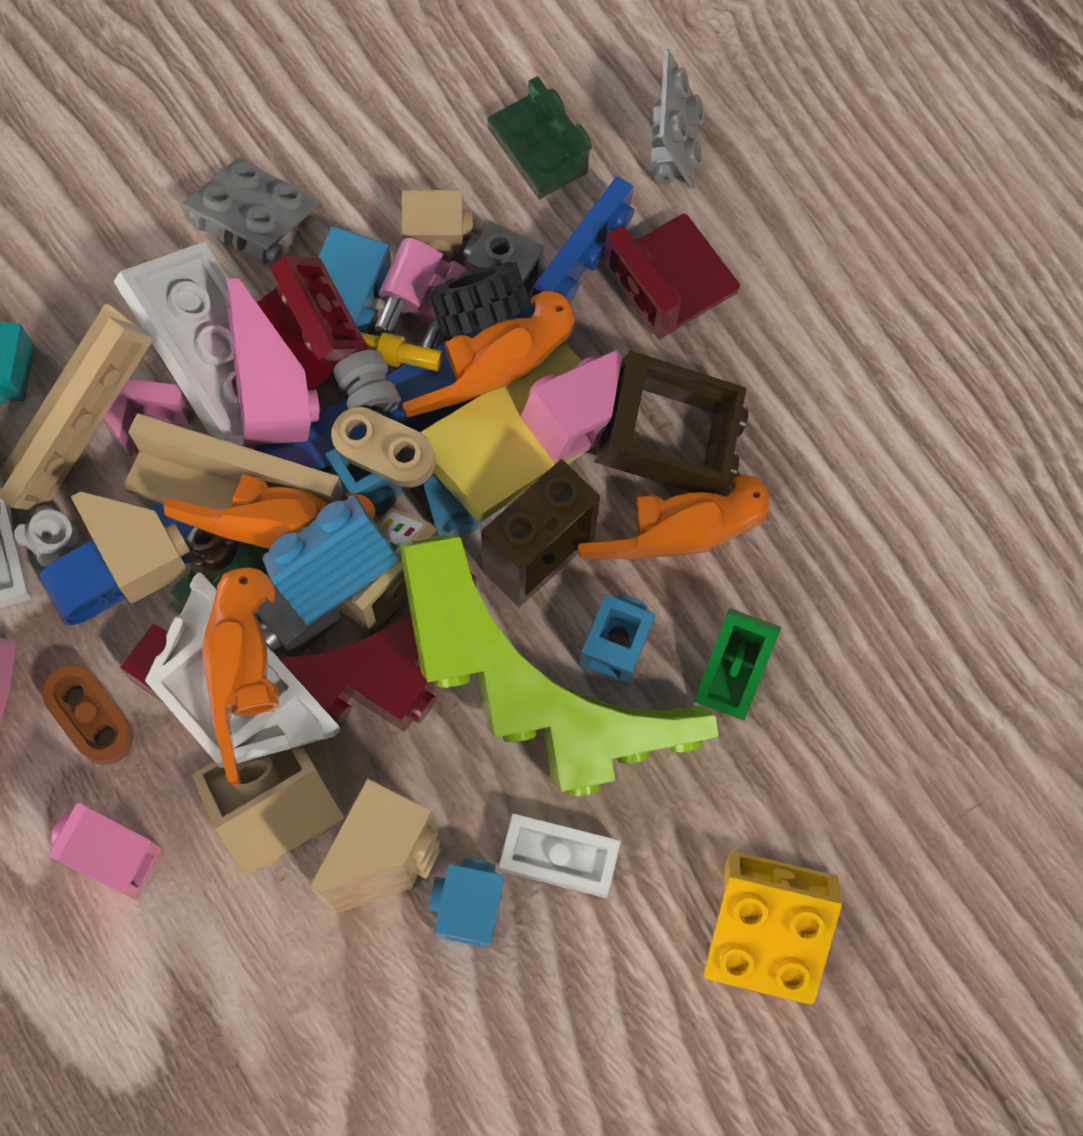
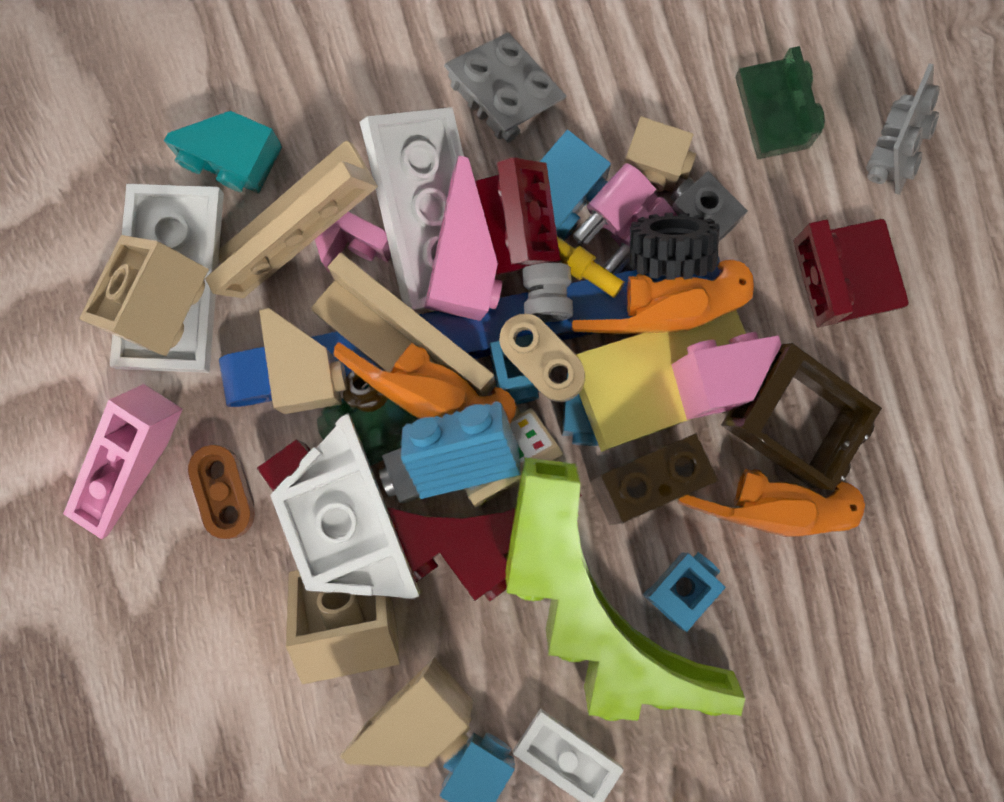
camera: 25 degrees right, 10 degrees up
(51, 521) = (223, 320): white plate -> none
(103, 850) = (192, 621): bright pink slope -> none
(237, 657) = (351, 510): orange animal -> none
(587, 243) = (786, 220): blue plate -> none
(737, 664) = (779, 651): green slope -> none

